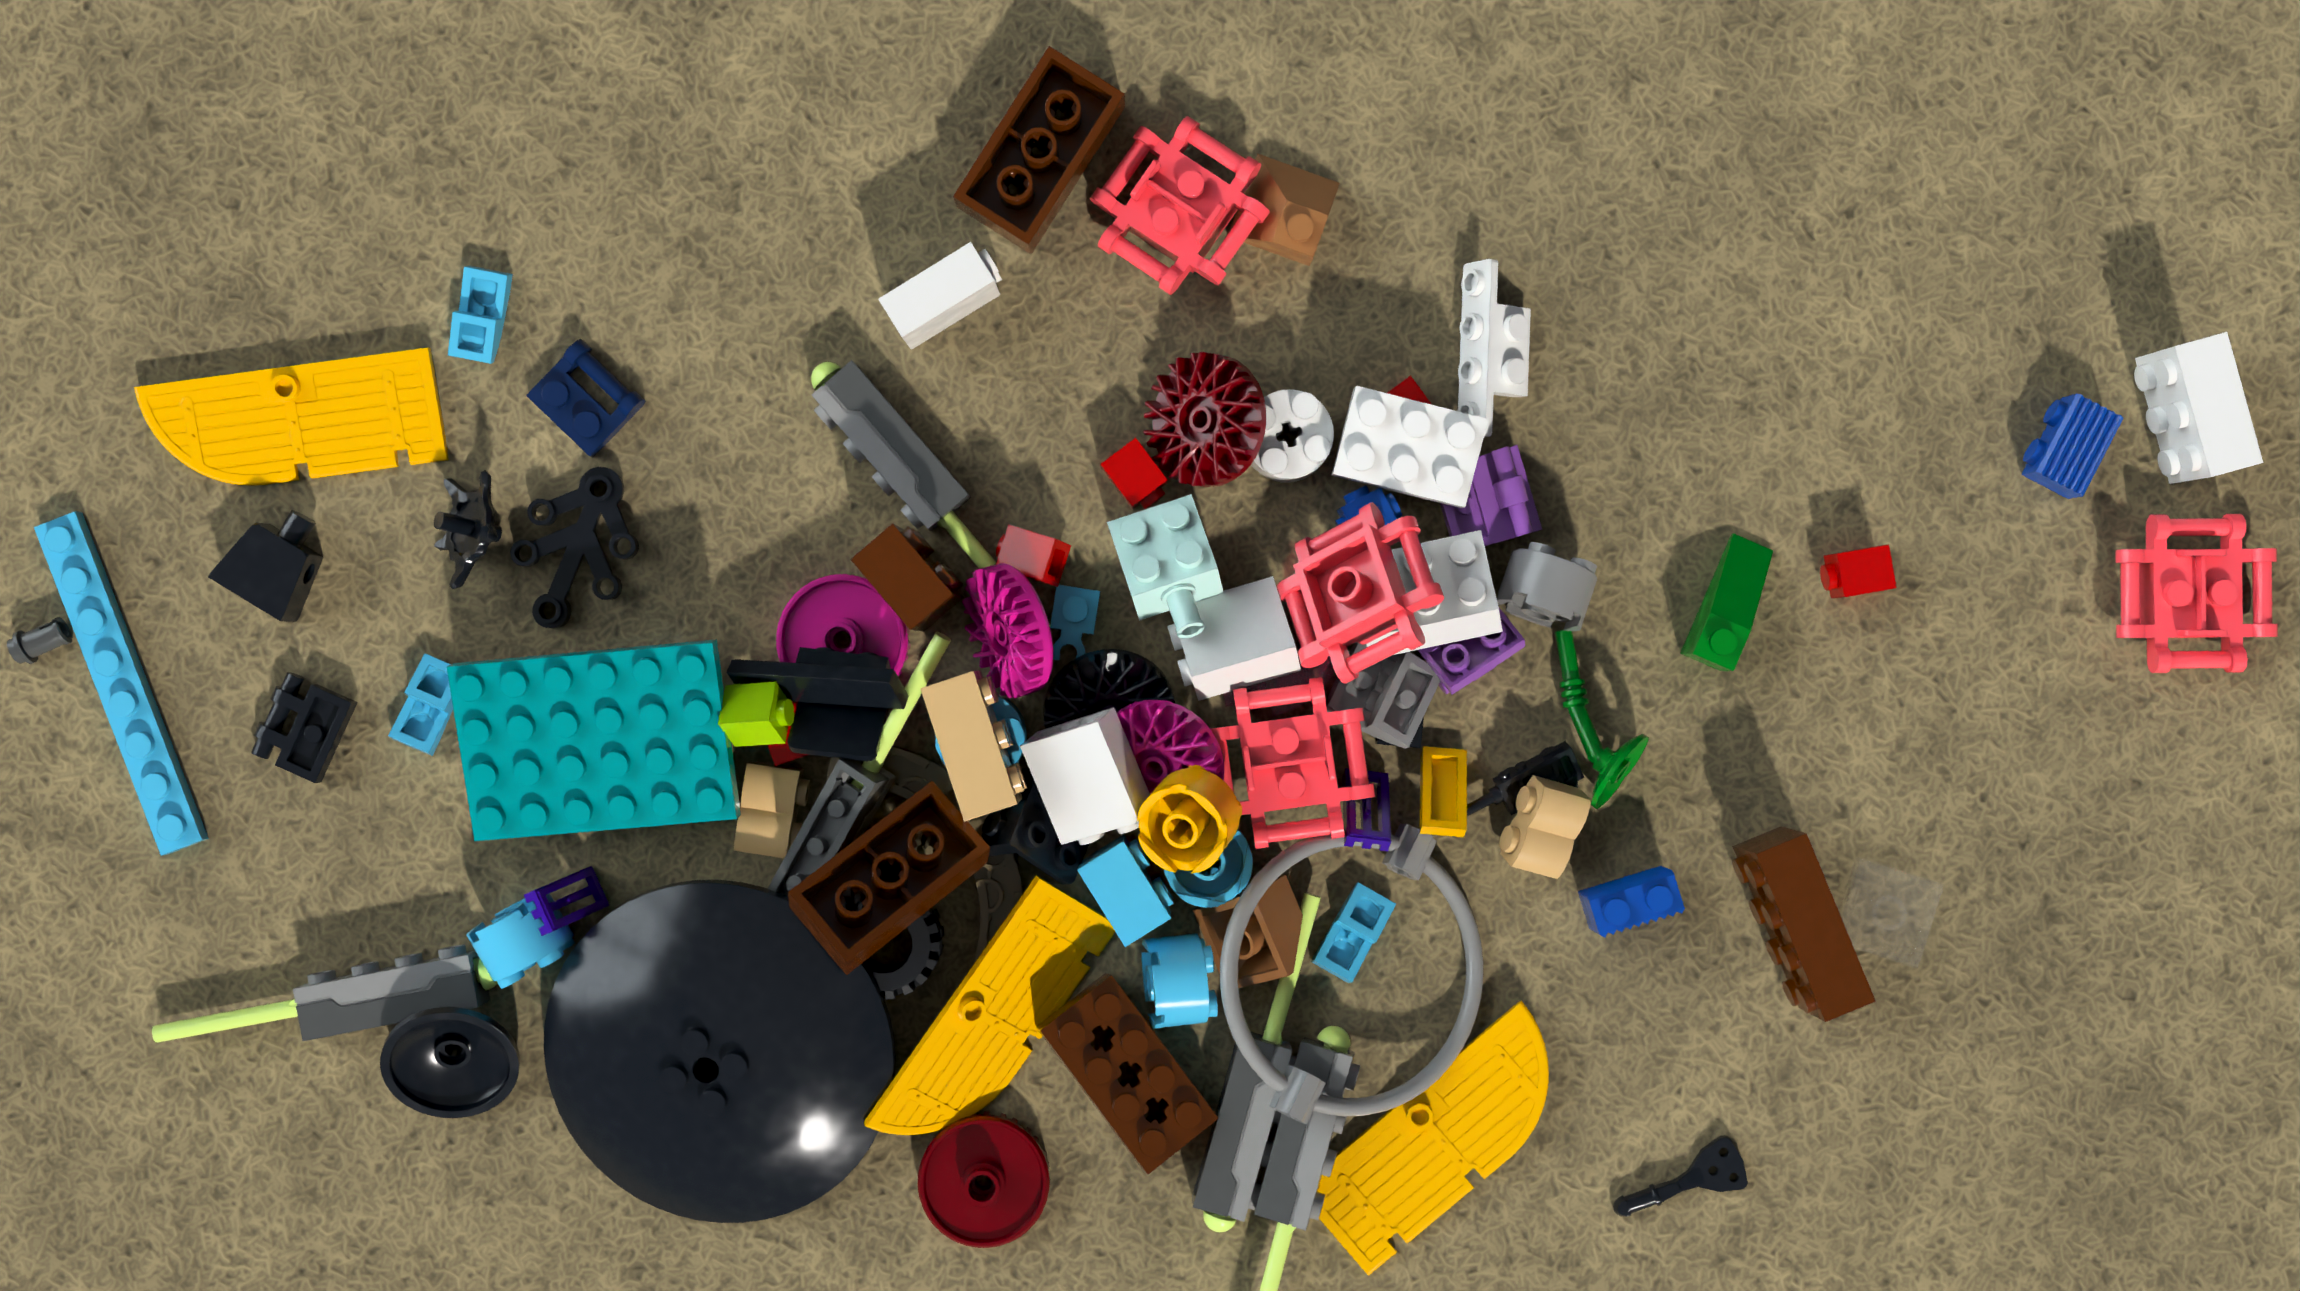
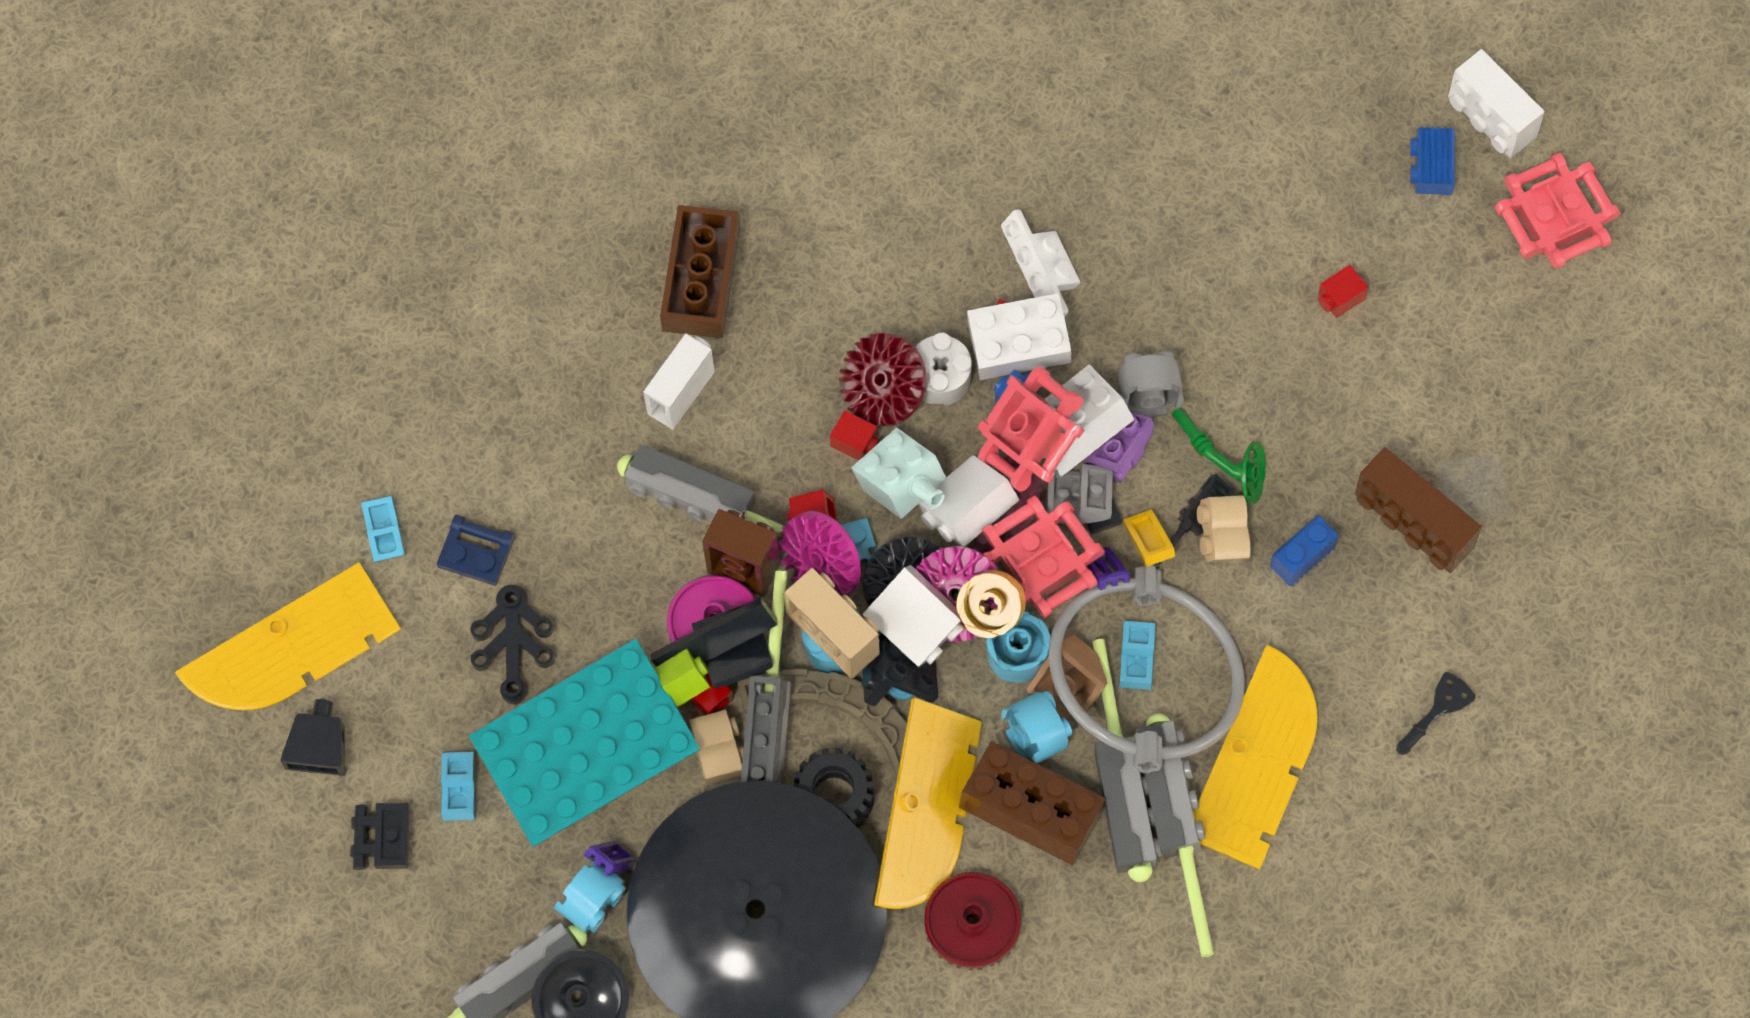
camera: 25 degrees left, 20 degrees down
(29, 645) = (179, 860): dark grey pin -> none
(121, 683) = (245, 865): medium azure plate -> none
(468, 526) = (436, 657): black piece -> none
(888, 847) = (817, 733): reddish brown brick -> none
(1126, 890) = (974, 684): medium azure brick -> none
(1179, 206) = (804, 265): coral brick -> none
(1297, 208) = (871, 243): medium nougat slope -> none
(1497, 501) = (1093, 346): medium lavender plate -> none
(1729, 605) = (1272, 349): green slope -> none

